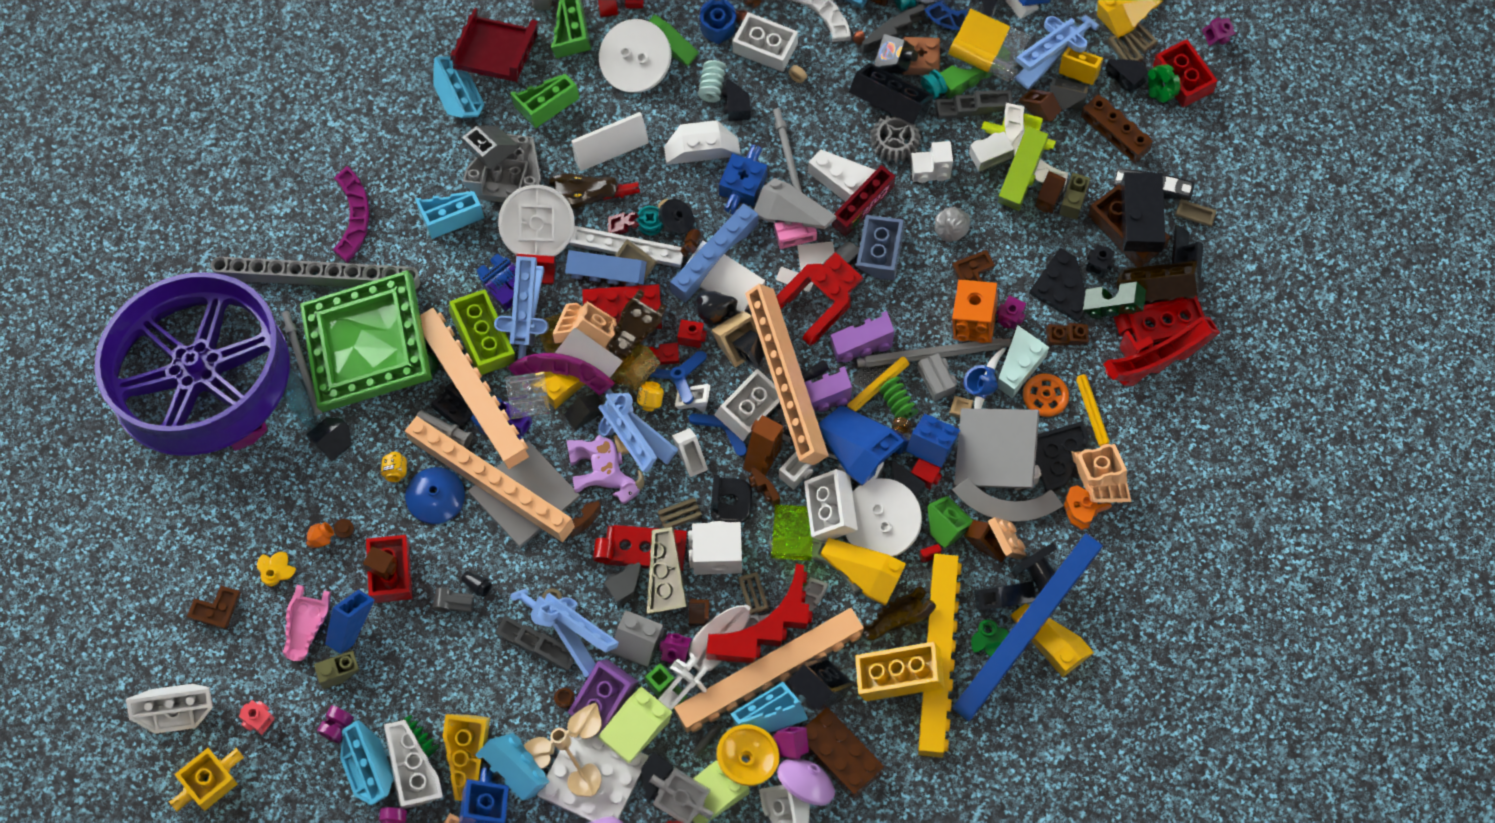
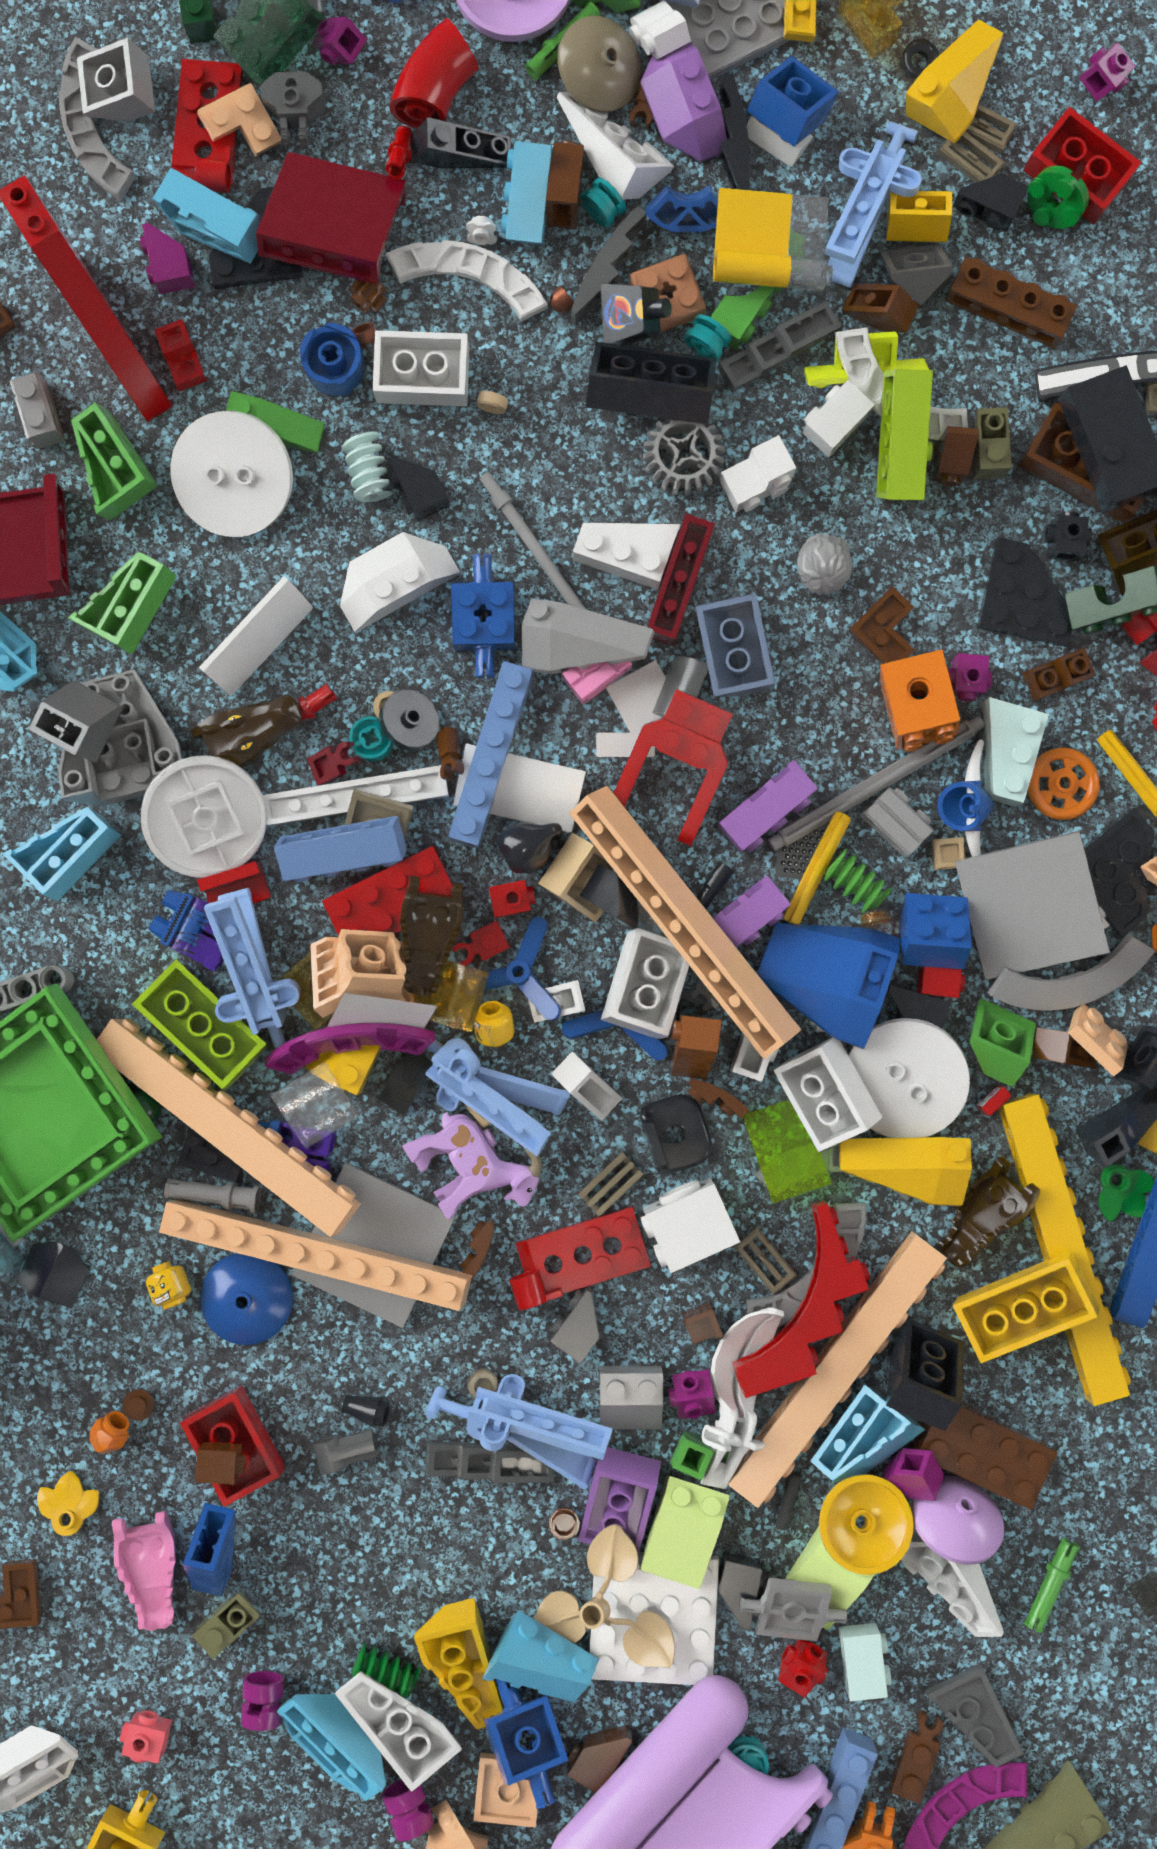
camera: 20 degrees left, 20 degrees up
(665, 575) = (639, 1304): wedge -> none

